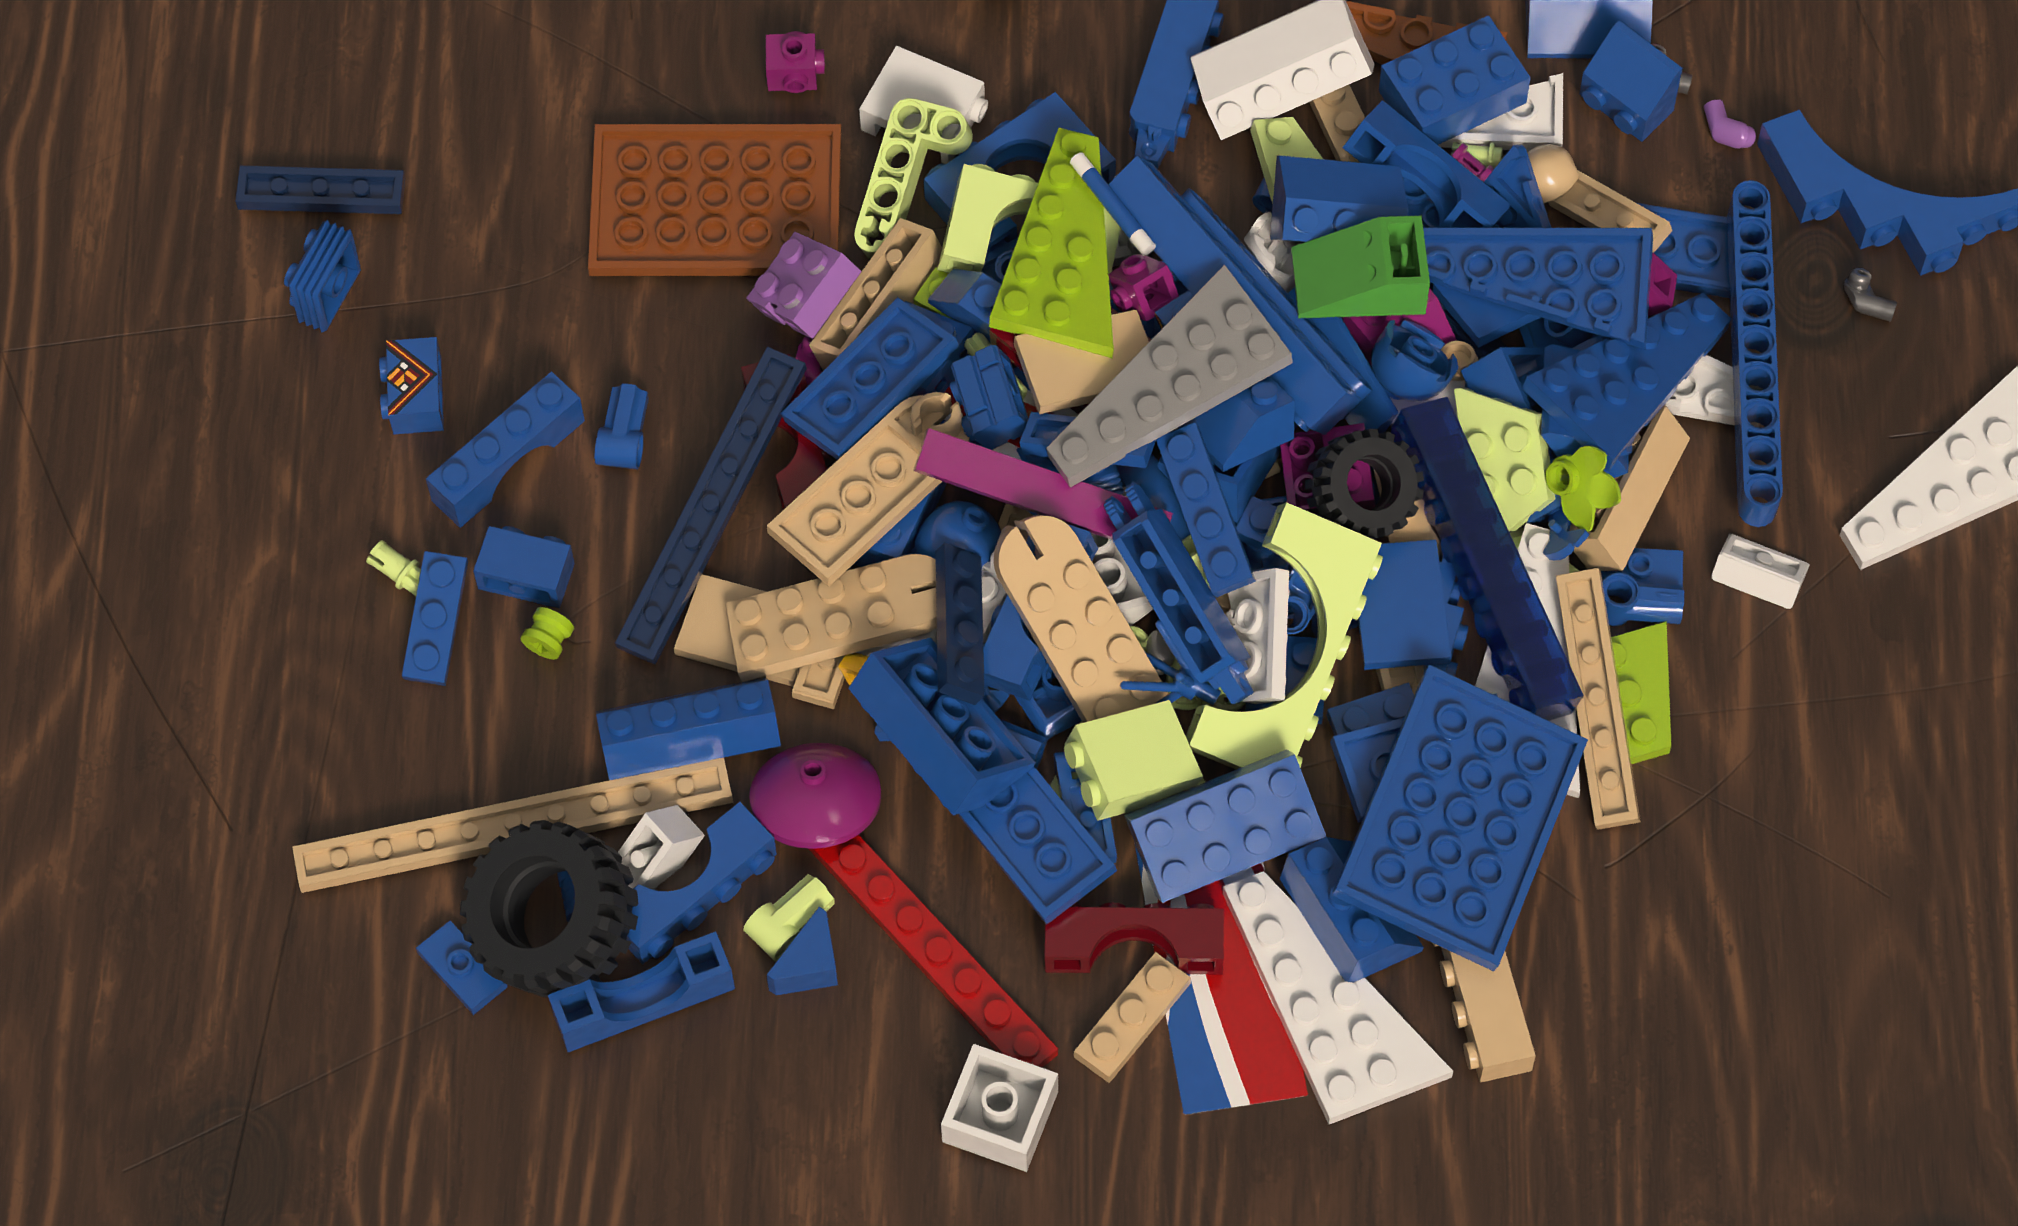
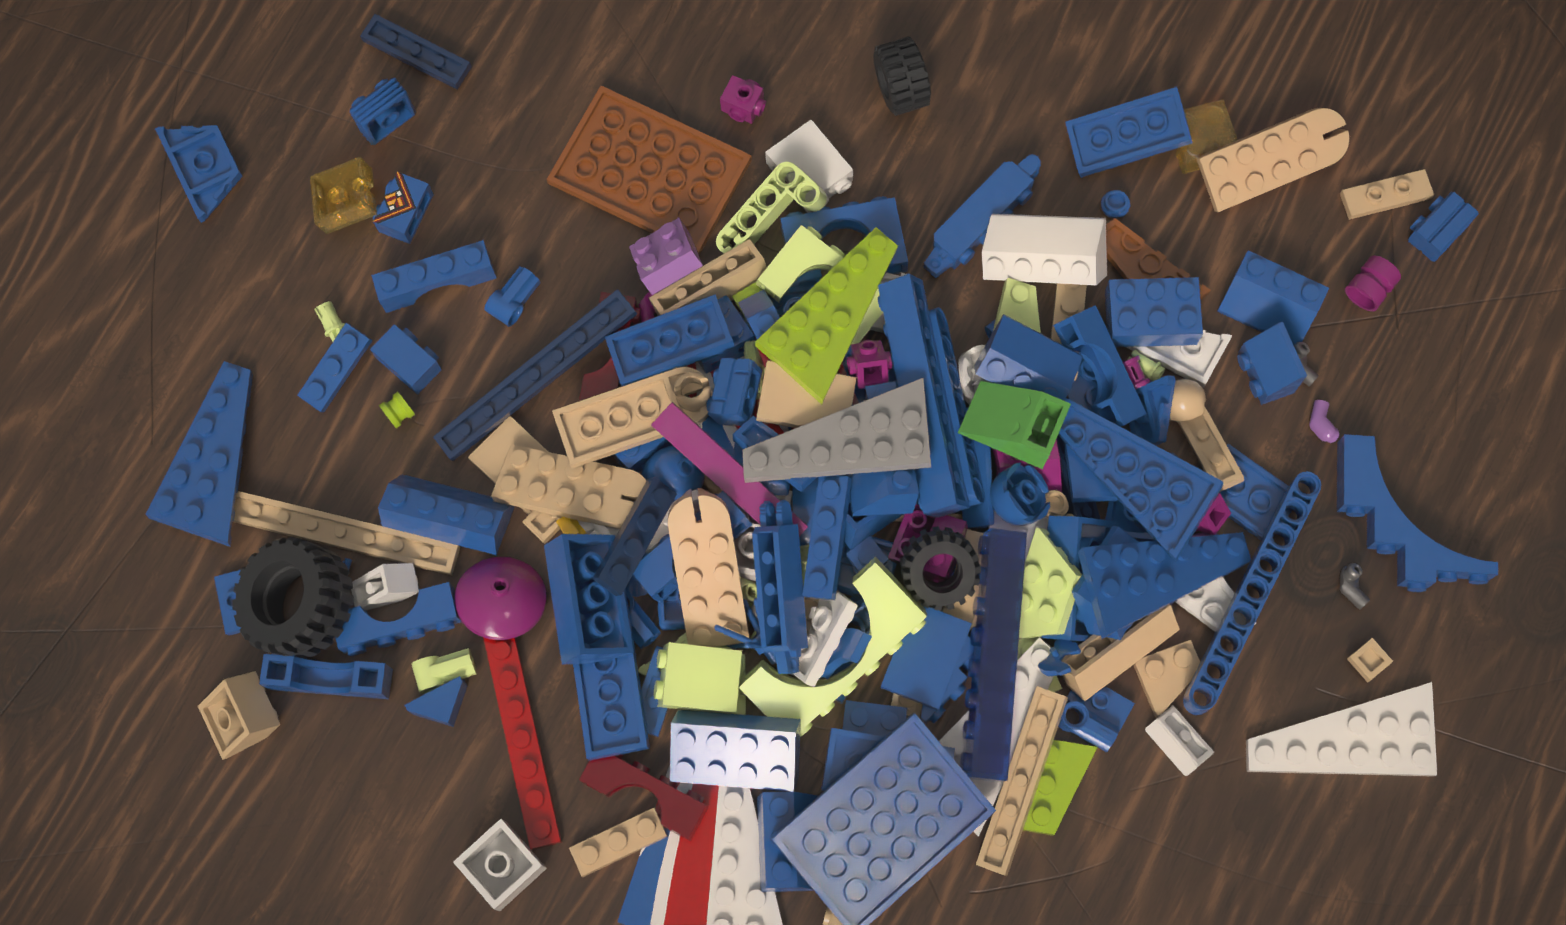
camera: 30 degrees right, 10 degrees up
(105, 453) = (201, 164): none -> blue wing
(328, 401) = (343, 195): none -> clear yellow piece
(333, 822) = (206, 470): none -> blue wing
(546, 1097) = (238, 714): none -> tan slope
(1112, 204) = (878, 298): blue bar -> none
(1305, 629) = (850, 648): none -> blue tile
(1584, 487) = (1082, 638): lime plate -> none
(1702, 501) = (1167, 674): none -> tan wing
(1935, 370) = (1370, 660): none -> tan plate

